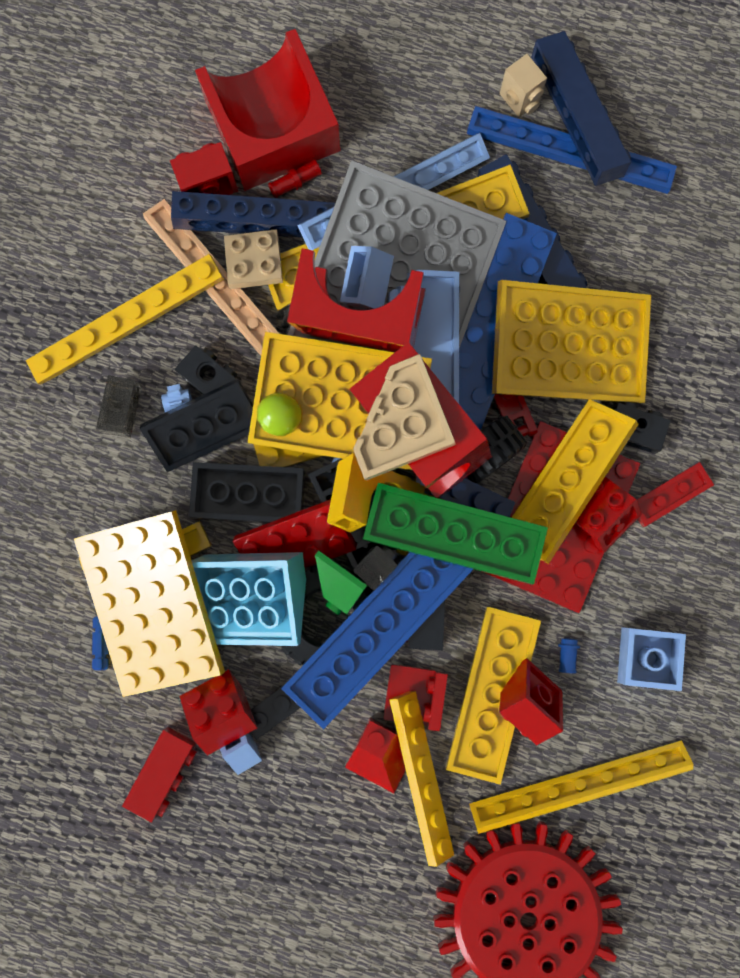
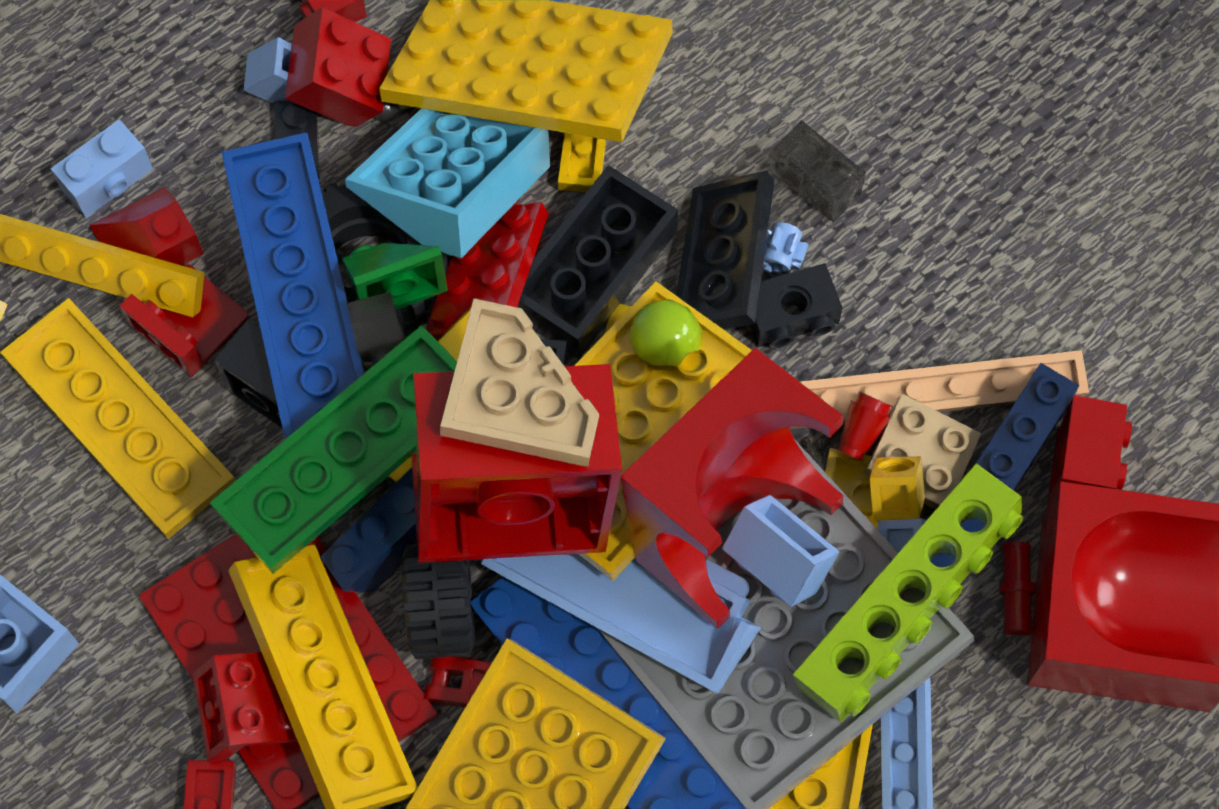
camera: 120 degrees right, 15 degrees down
(125, 319) = (937, 250): yellow plate -> none
(257, 294) = (863, 425): none -> red cone
(286, 249) = (897, 488): none -> yellow brick
(335, 206) = (975, 497): none -> lime brick
(360, 807) = (102, 168): none -> light blue brick
(532, 703) = (68, 449): red slope -> none
(568, 655) = (102, 551): blue pin -> none

